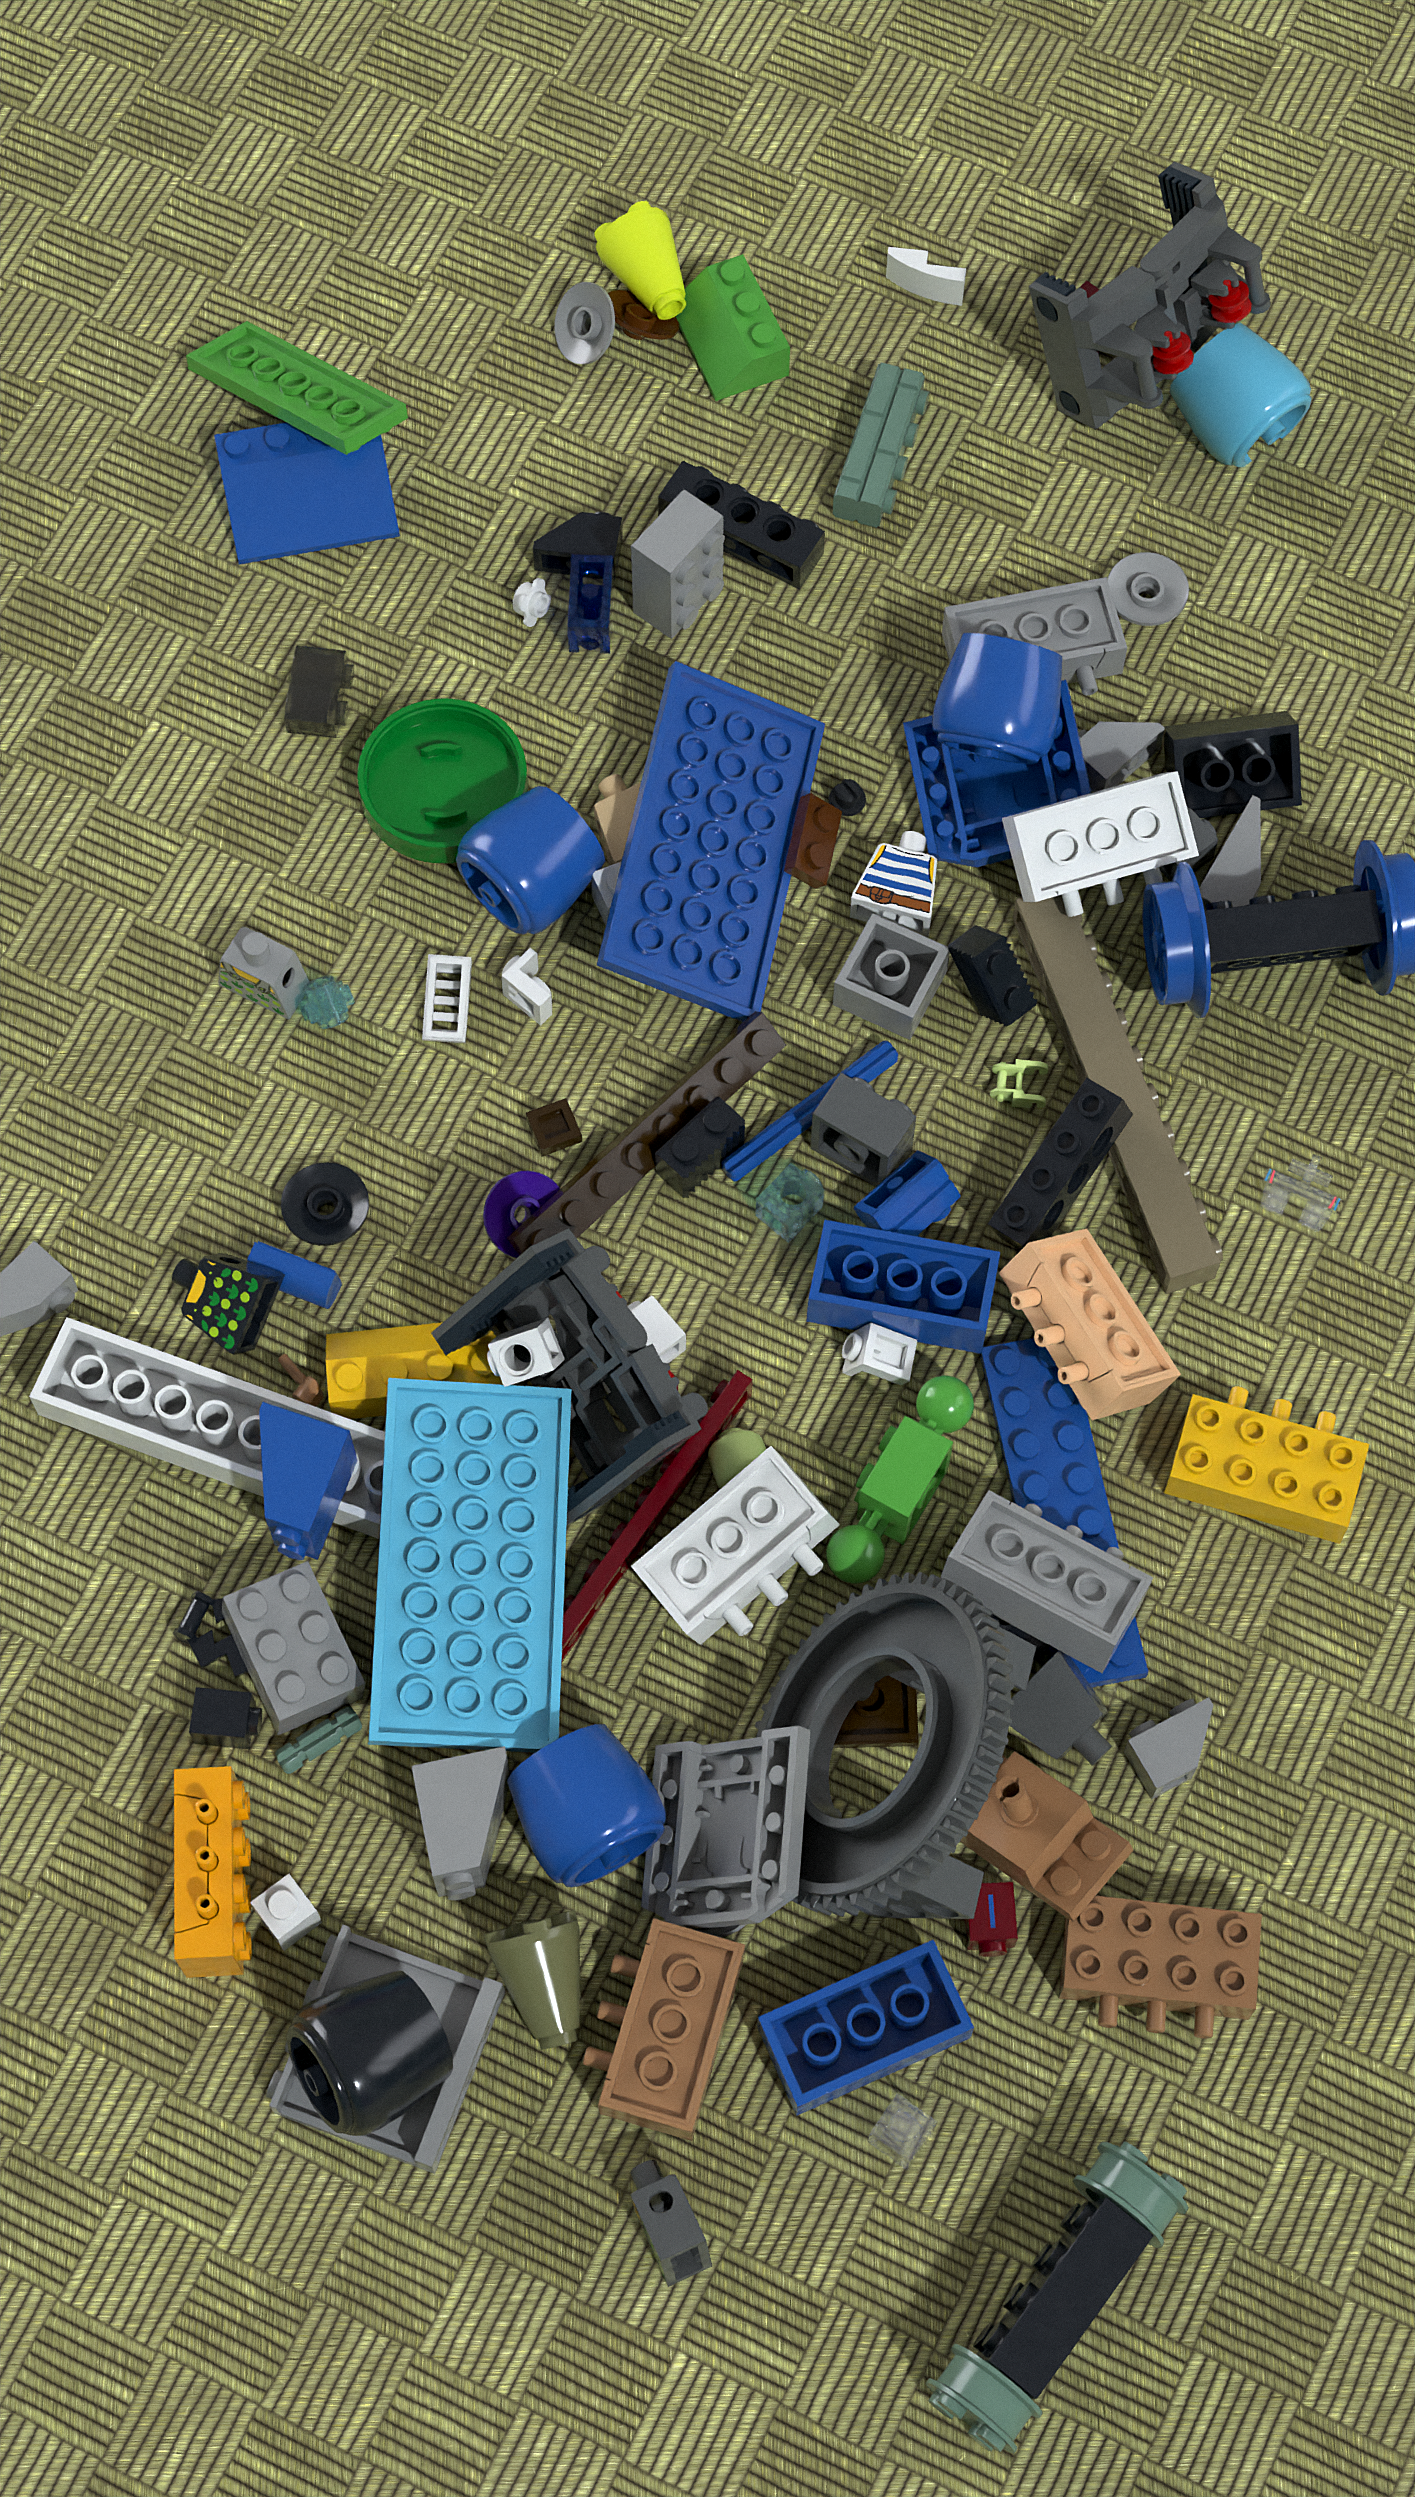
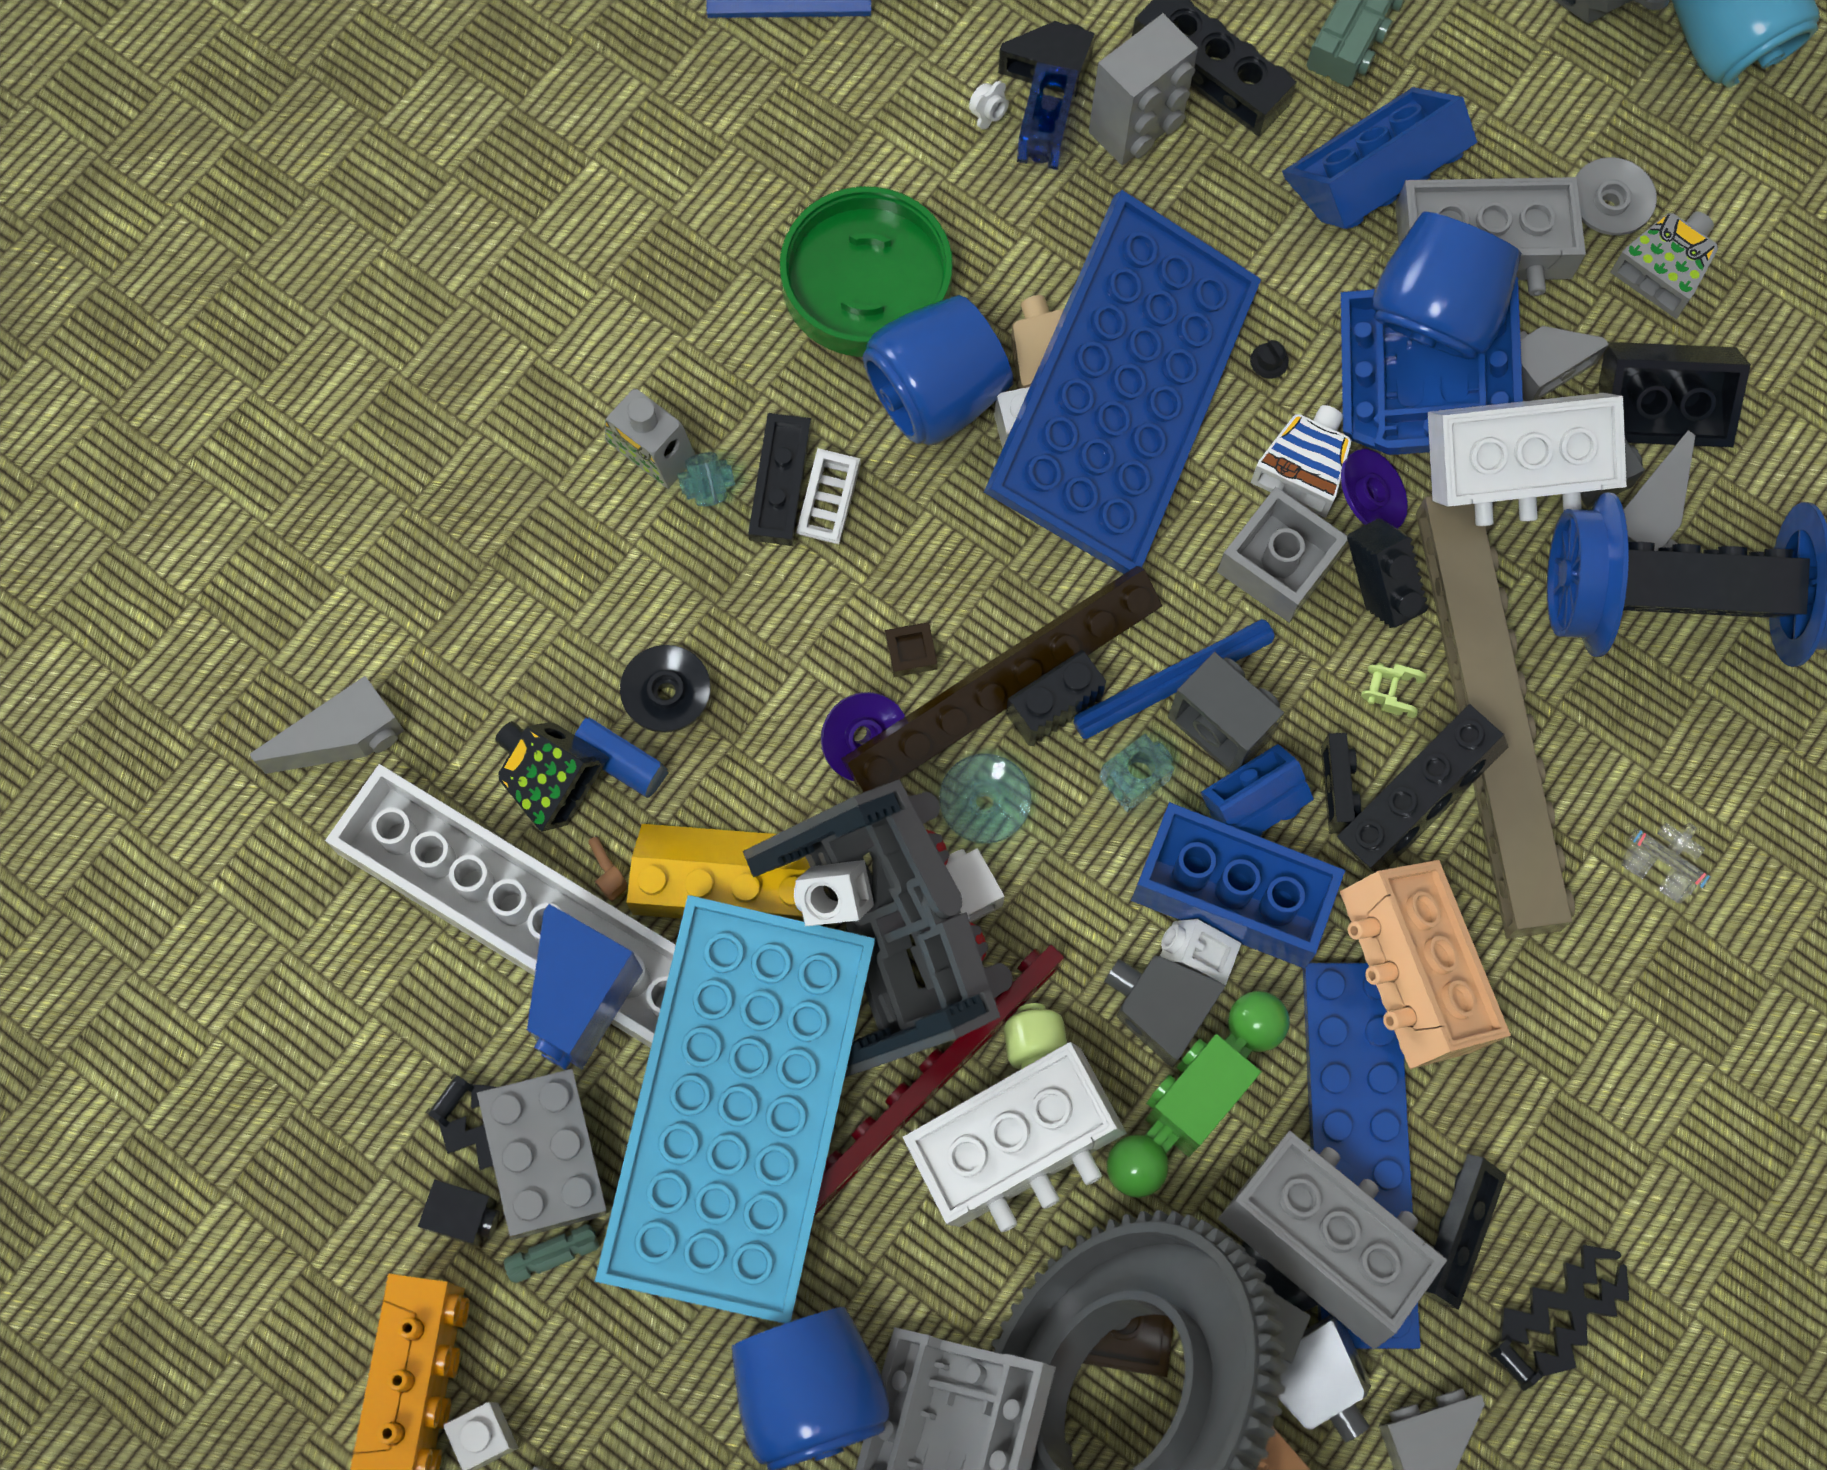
camera: 10 degrees right, 5 degrees up
(317, 691) = (758, 159): clear smoke brick -> none
(397, 990) = (780, 479): none -> black plate
(461, 1817) = (676, 1375): light grey slope -> none
(525, 989) = (911, 506): white bracket -> none
(651, 1232) = (990, 777): none -> clear light blue dish
(813, 841) = (1227, 398): reddish brown plate -> none
(854, 1407) = (1163, 1004): none -> dark grey torso
(913, 589) = (1376, 156): none -> blue slope
(966, 899) = (1373, 488): none -> dark purple dish
(979, 1162) = (1338, 765): none -> black plate
(1170, 1560) = (1465, 1228): none -> black plate
(1209, 640) = (1668, 260): none -> light grey torso
(1232, 1634) = (1573, 1301): none -> black piece
(1267, 1465) = (1585, 1148): yellow piece -> none

